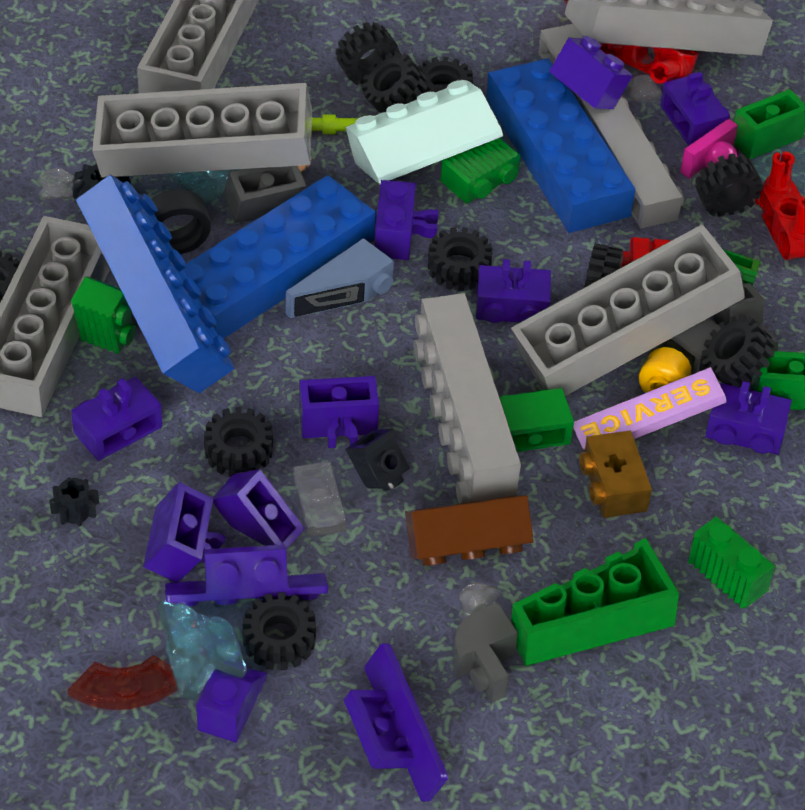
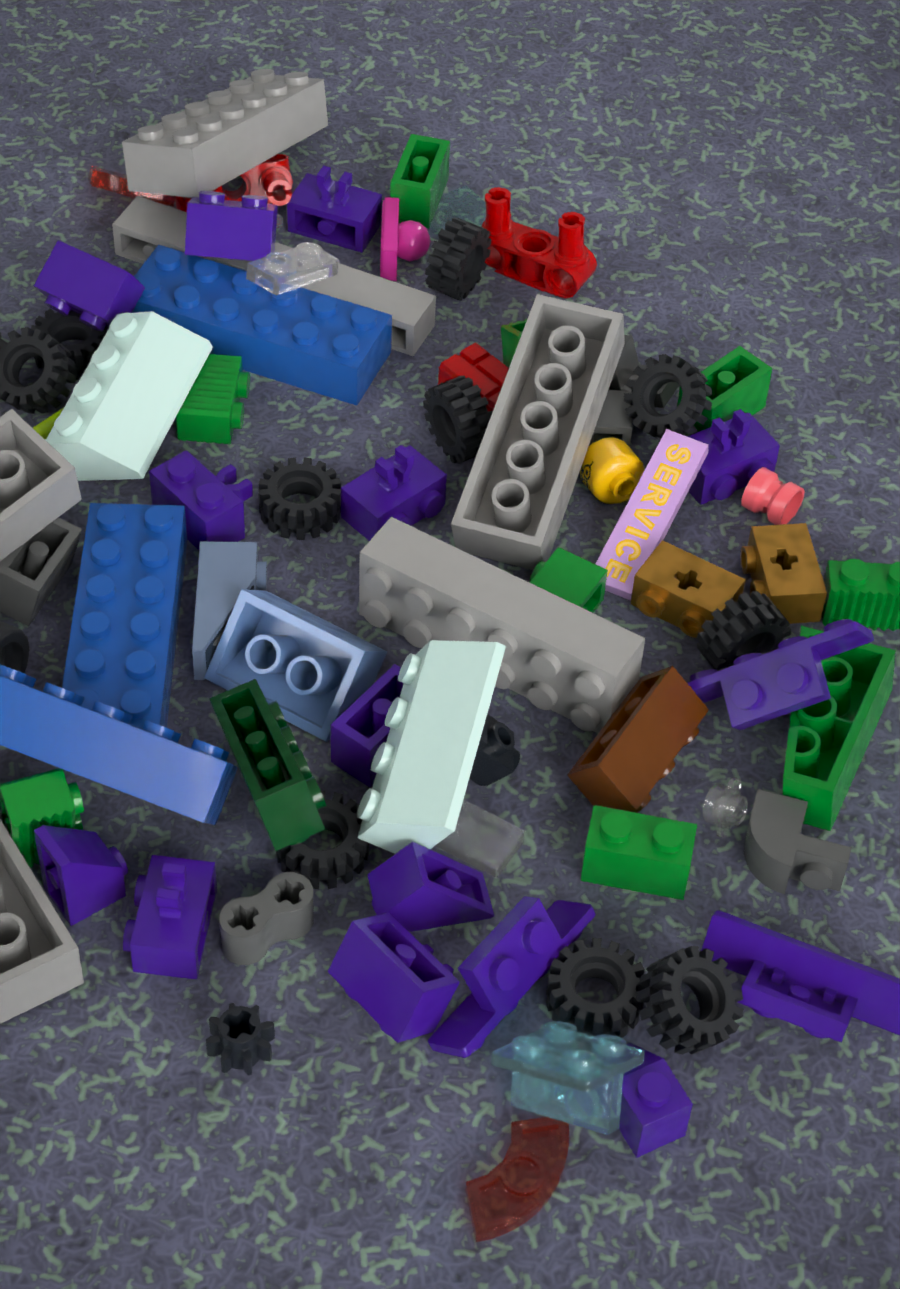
camera: 45 degrees left, 0 degrees up
(95, 355) = (79, 871): none -> dark purple slope
(159, 456) = (260, 921): none -> dark grey axle
(240, 373) = (270, 764): none -> dark green brick
(328, 426) = (430, 744): none -> light aqua slope
(338, 669) = (713, 994): none -> black tyre
(341, 334) = (295, 658): none -> medium blue slope
(392, 582) = (638, 852): none -> green brick
(470, 53) = (87, 286): none -> dark purple brick
(581, 551) = (781, 680): none -> dark purple bracket
(604, 121) = (292, 268): none -> clear plate
(608, 519) = (741, 629): none -> black tyre
(689, 506) = (785, 570): none -> pearl gold brick
(748, 462) = (770, 496): none -> coral wheel

